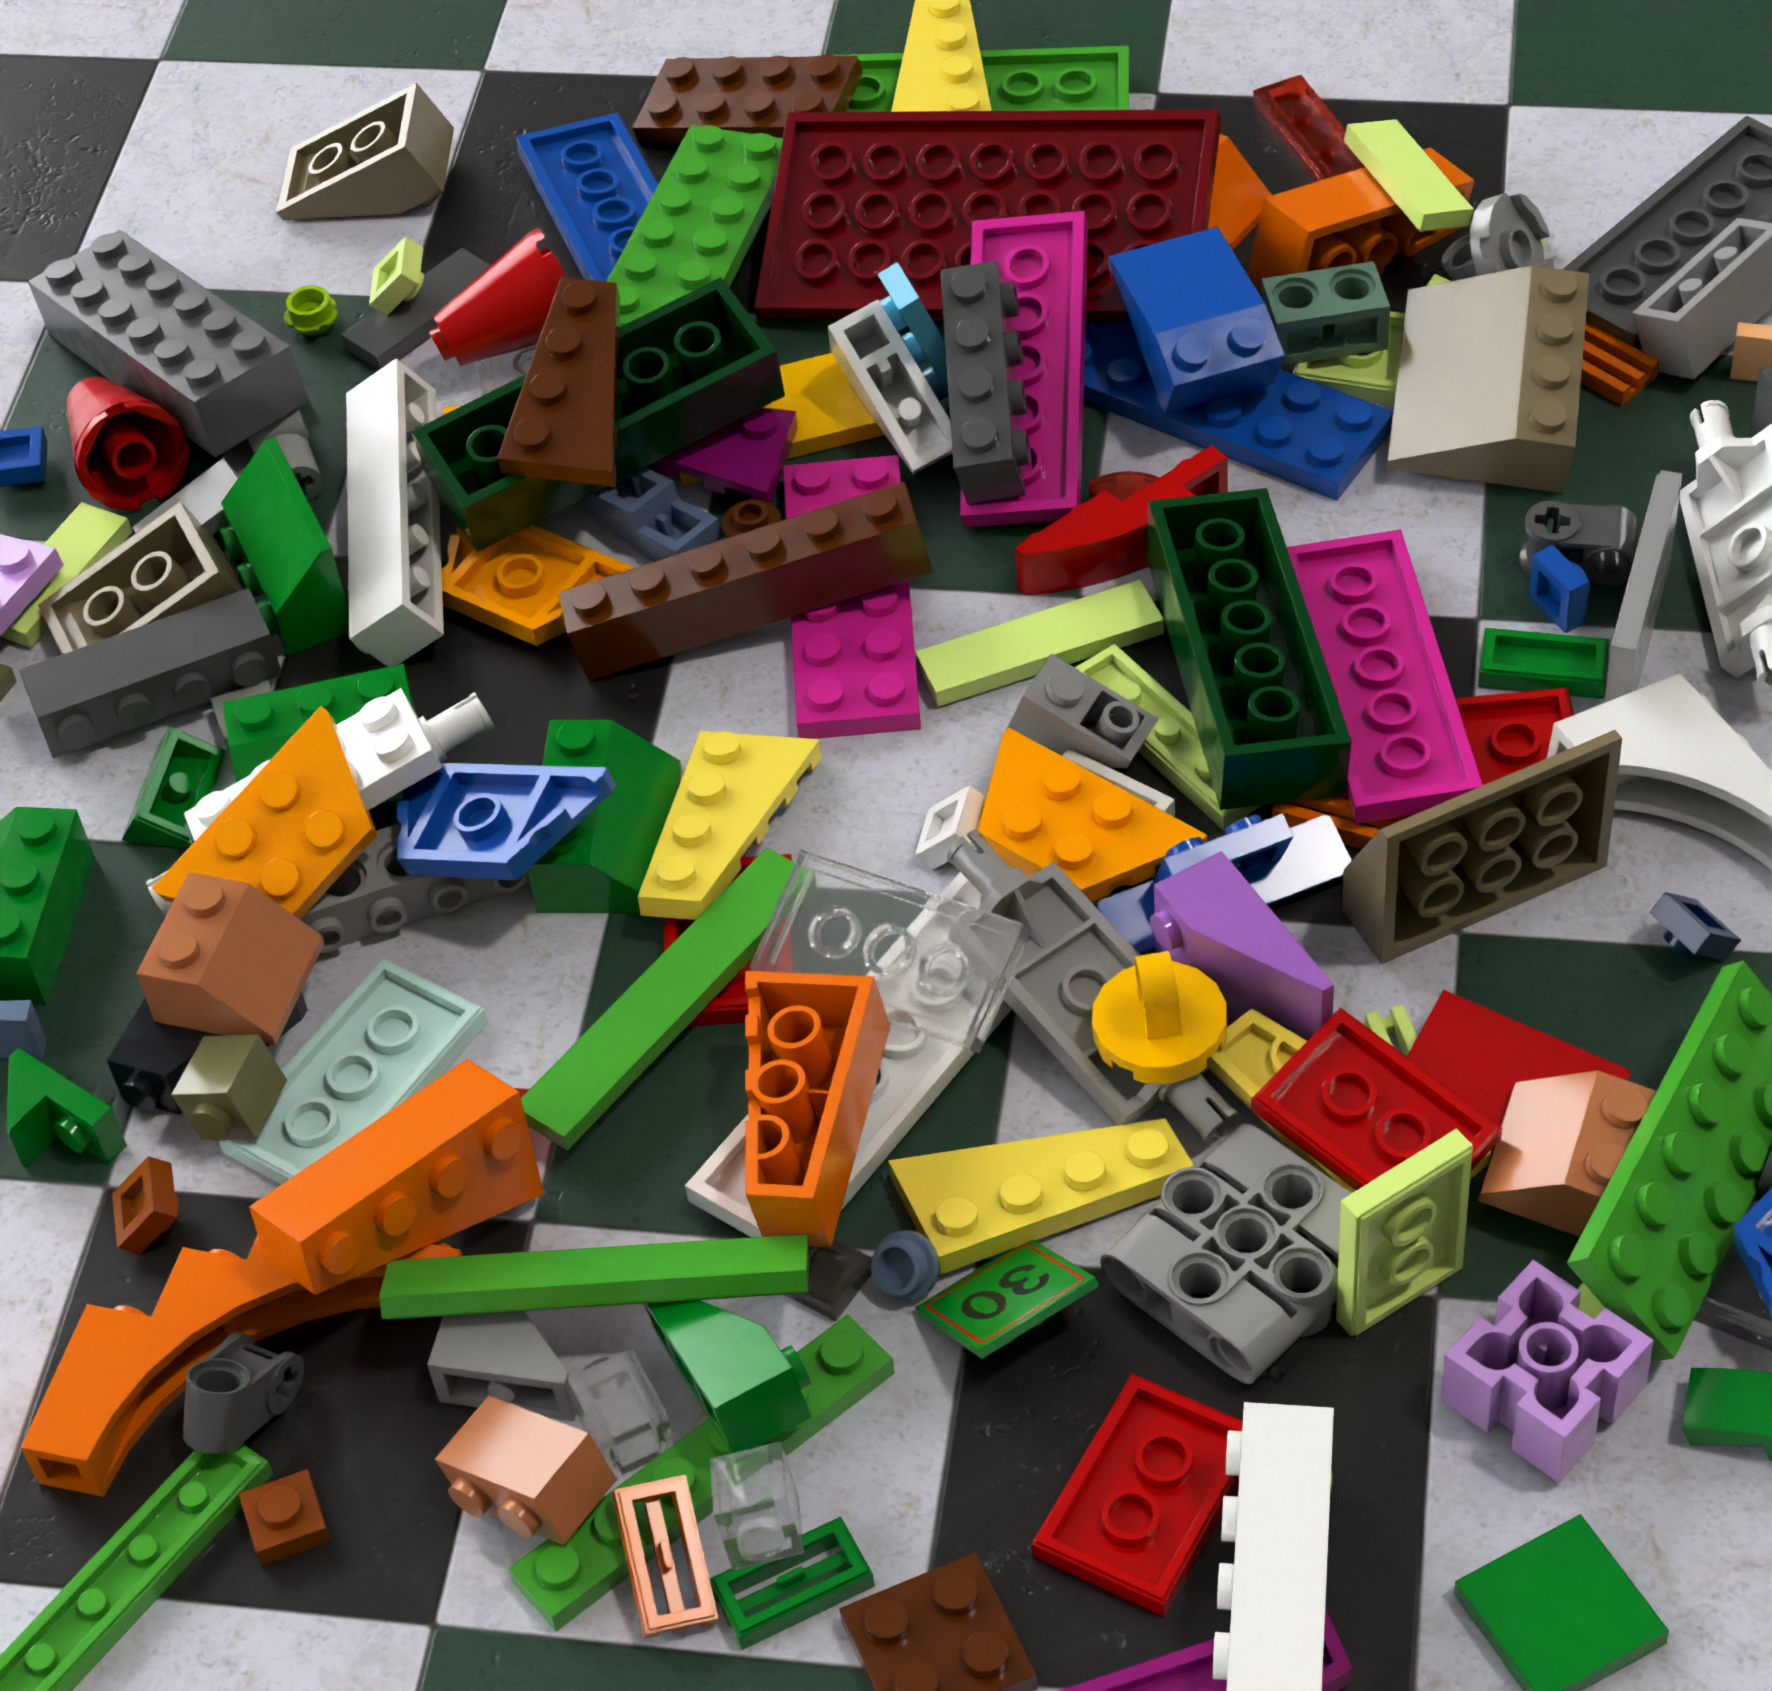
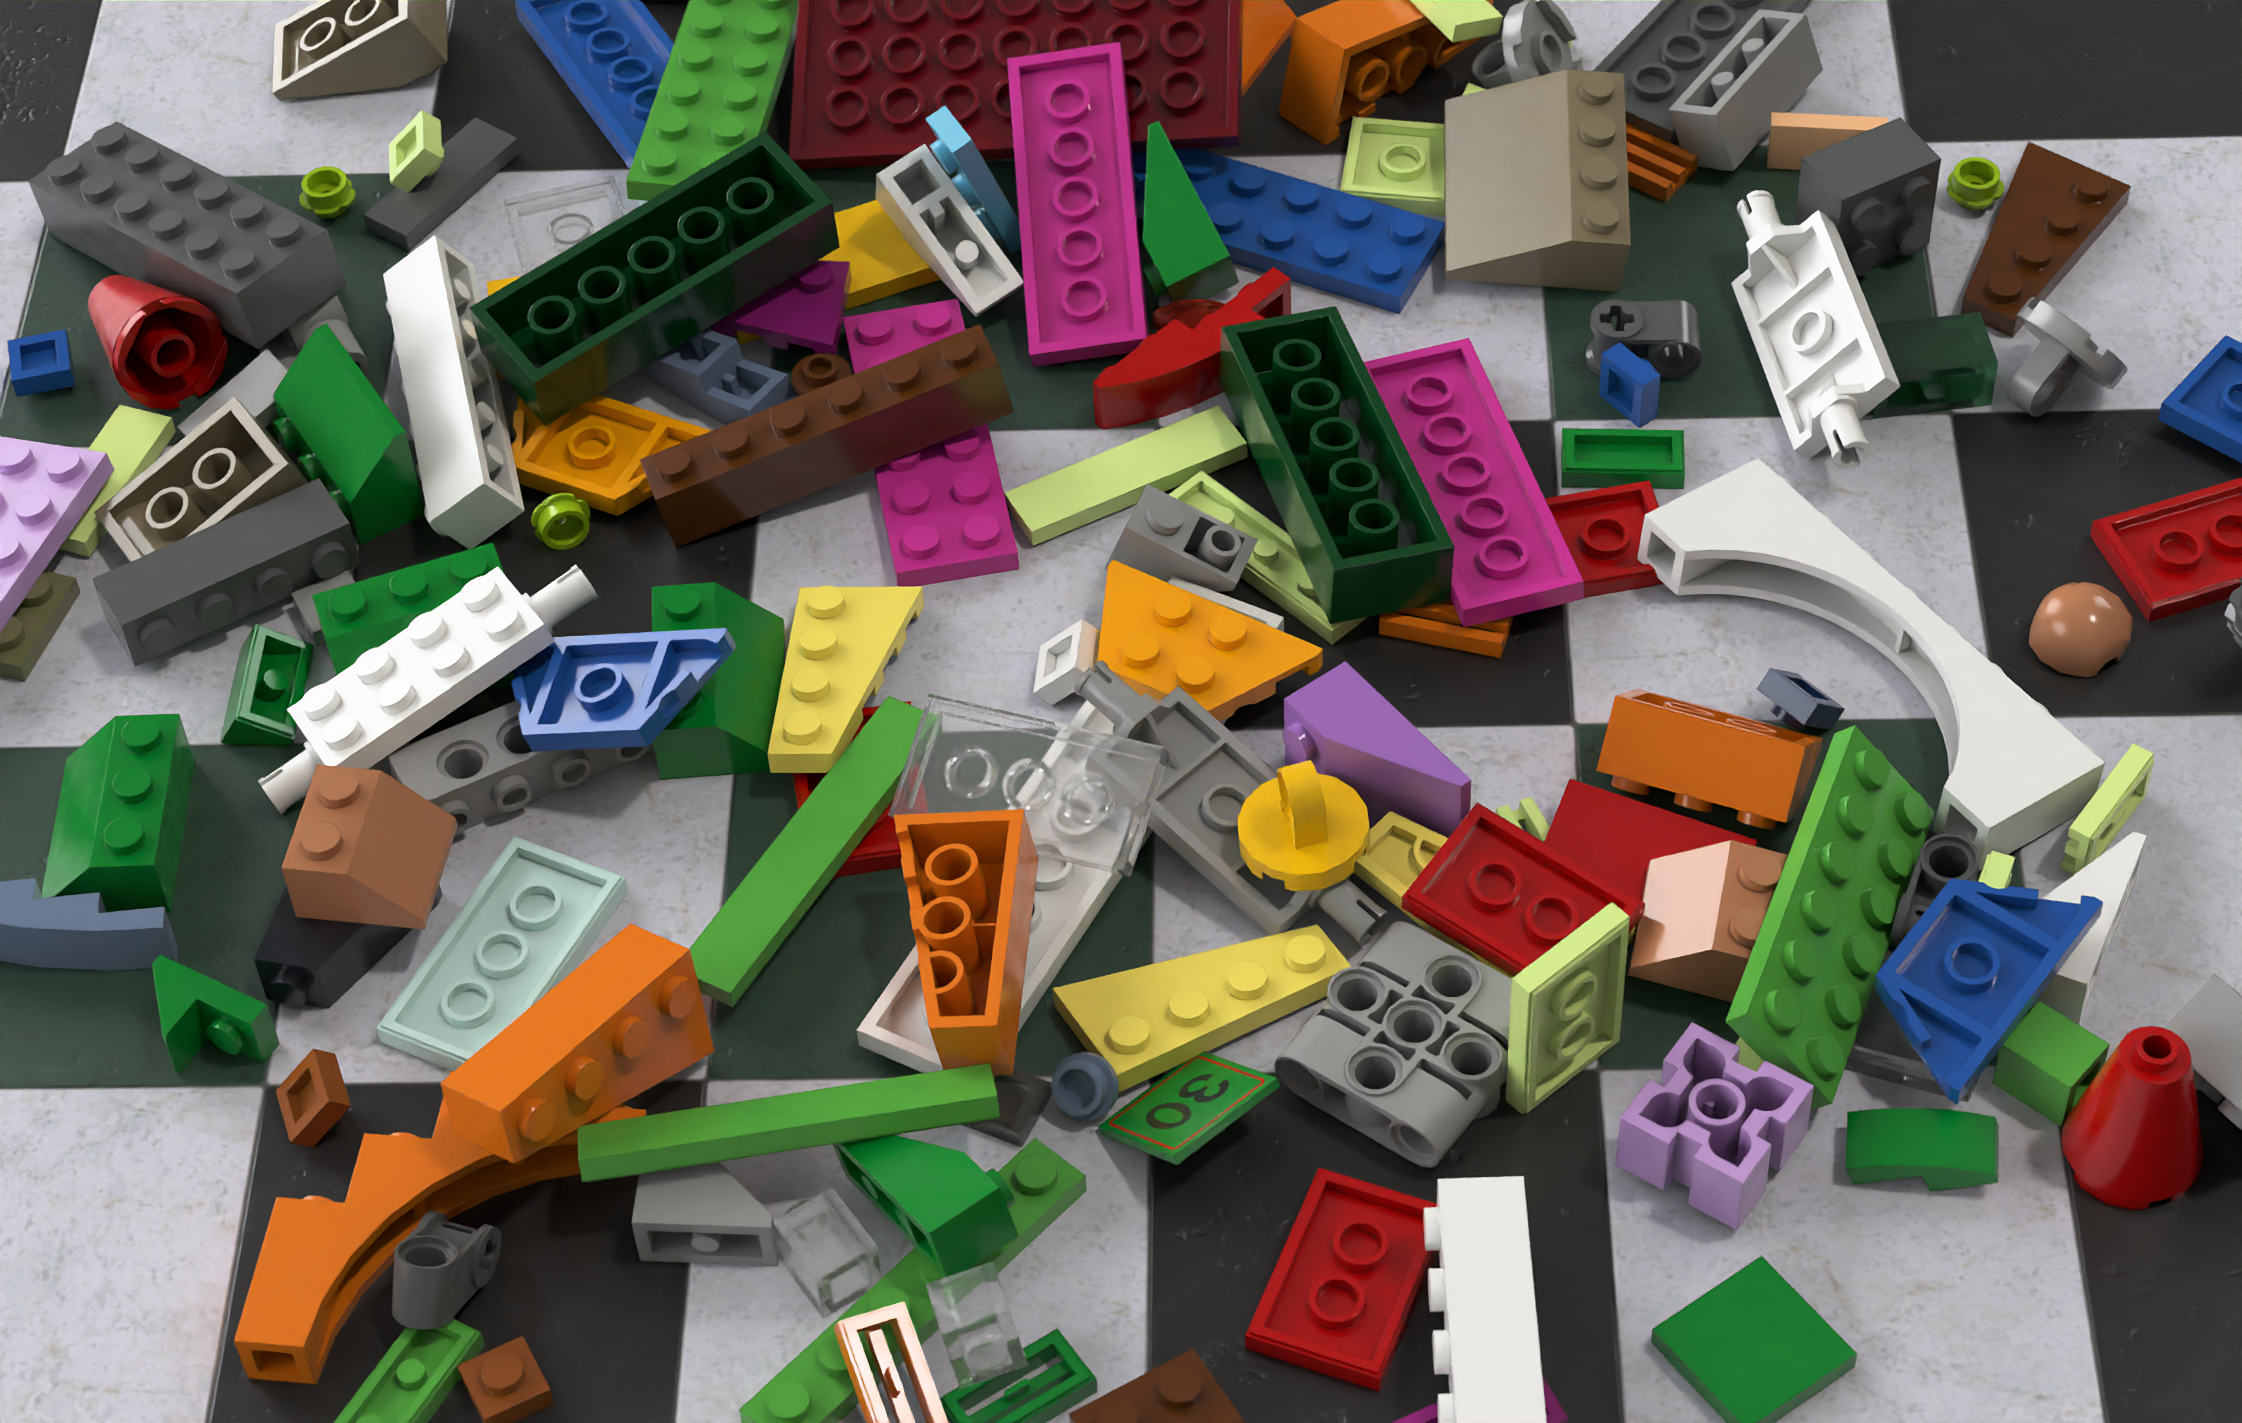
camera: 10 degrees left, 0 degrees up
(229, 1087) = (383, 974): olive brick -> none
(288, 826) = (407, 712): light orange wing -> none
(482, 657) = (561, 521): none -> lime plate
(502, 306) = (543, 174): red cone -> none
(525, 1470) = (744, 1313): nougat brick -> none
(569, 395) = (628, 258): reddish brown wing -> none
(983, 382) = (1040, 220): dark grey brick -> none
(1121, 403) = (1177, 231): none -> green slope
(1197, 319) = (1244, 143): blue slope -> none
(1267, 853) = (1392, 662): bracket -> none
(1328, 312) = (1366, 129): sand green brick -> none
(1484, 850) = (1593, 642): dark tan slope -> none
(1590, 979) = (1707, 757): none -> orange slope
(1644, 588) = (1714, 376): light grey tile -> none

